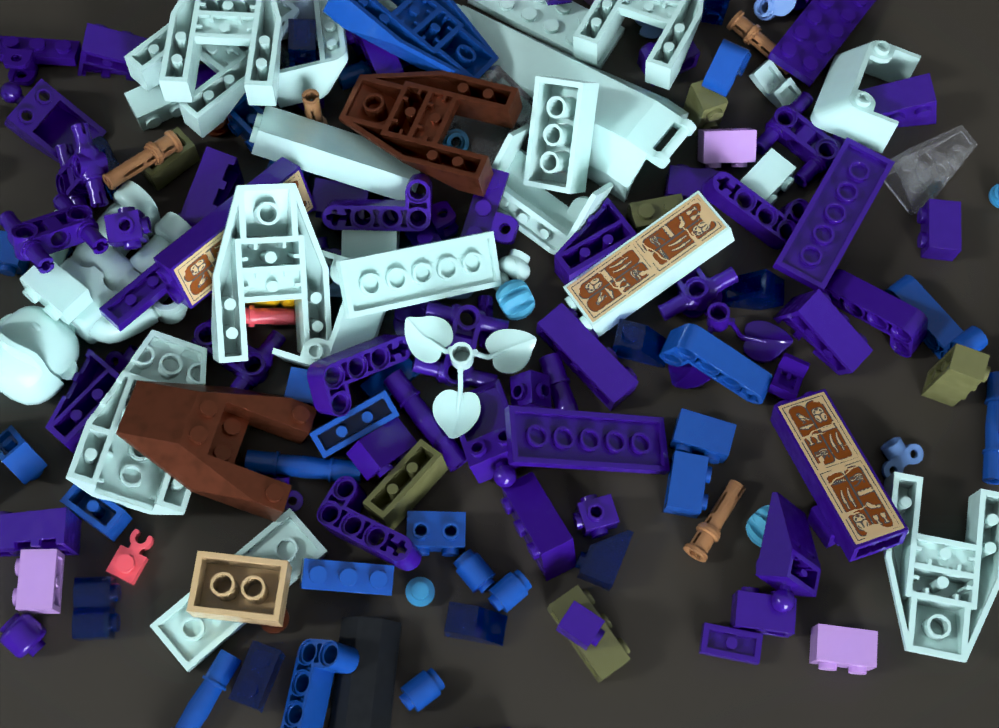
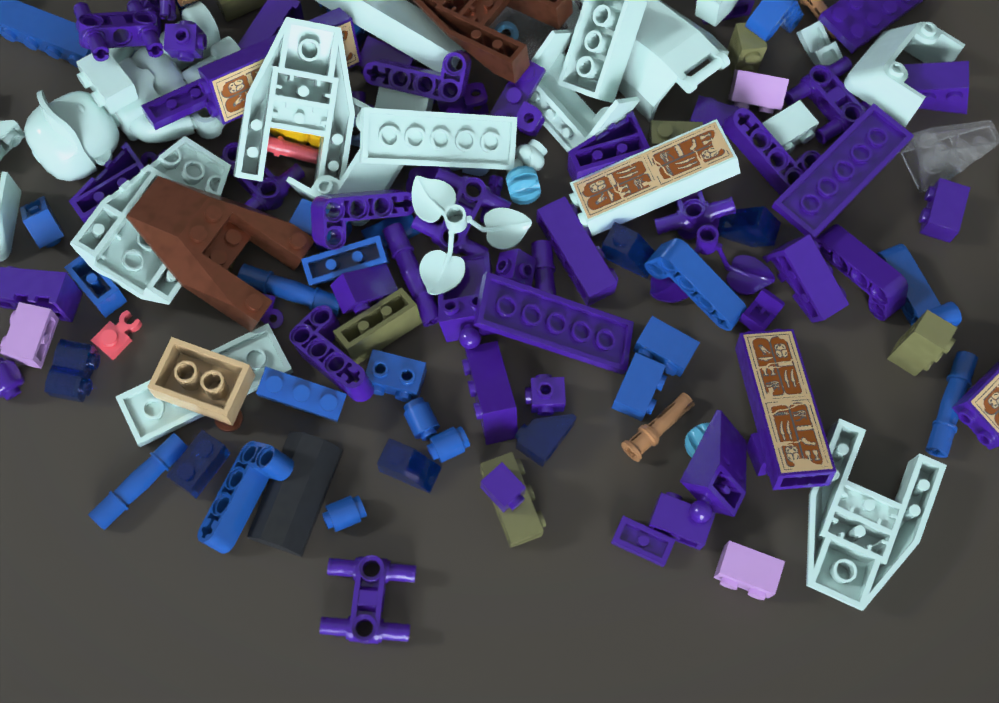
camera: 15 degrees right, 0 degrees up
(420, 591) = (366, 425): dark azure plate -> none
(899, 455) = (850, 407): medium blue piece -> none

